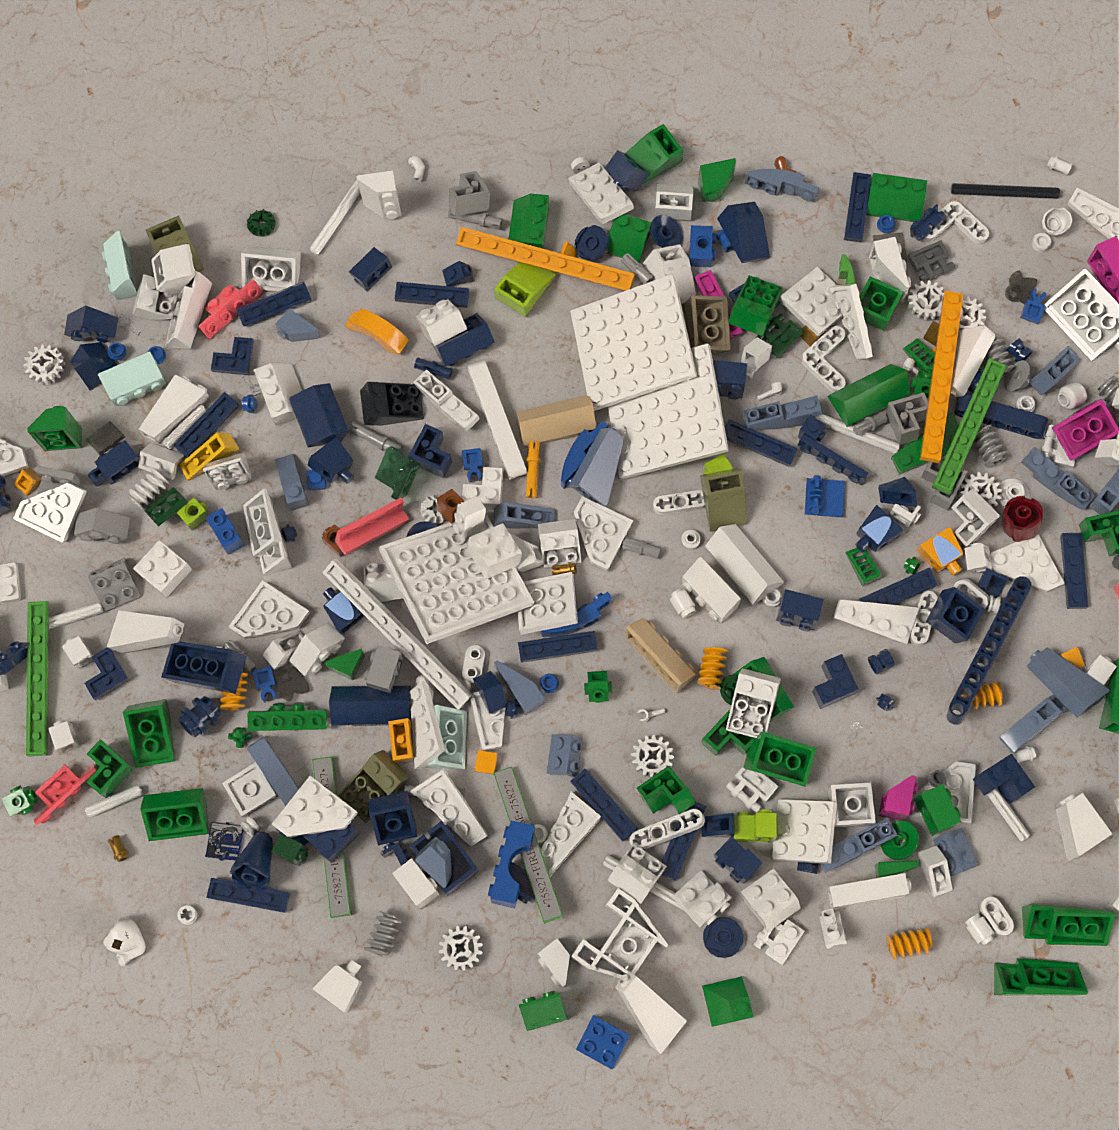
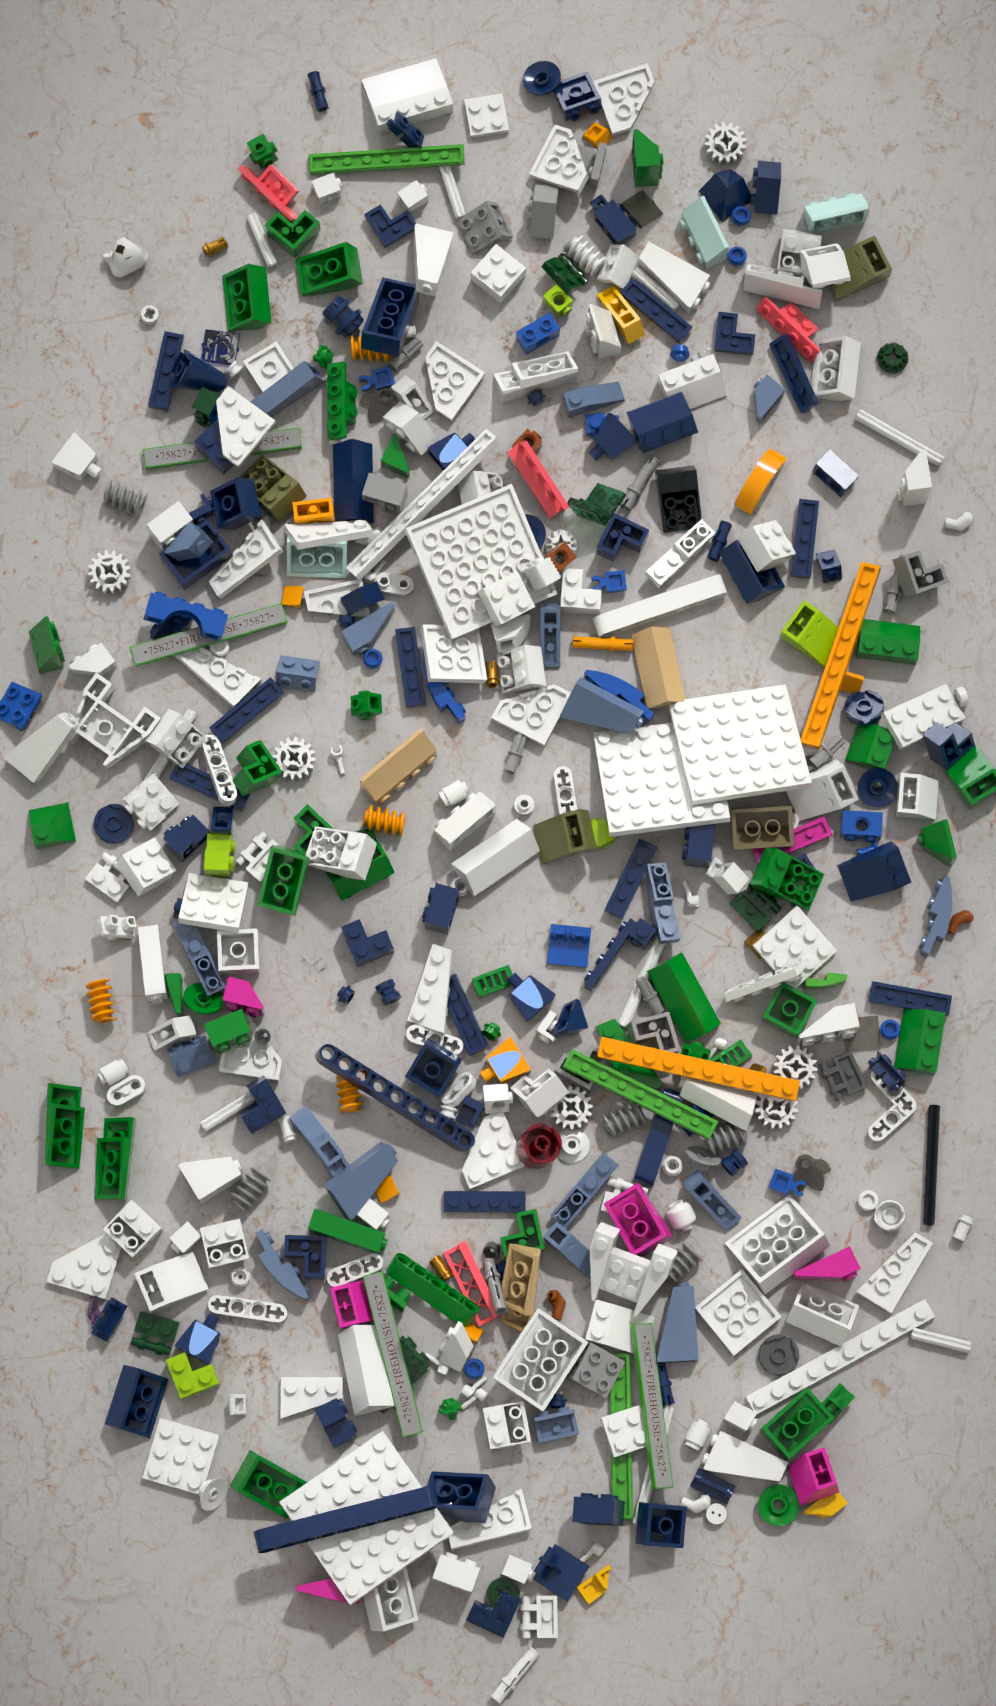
camera: 85 degrees right, 5 degrees up
(819, 357) = (731, 948): white beam -> none
(1084, 786) = (249, 1189): none -> light grey piece

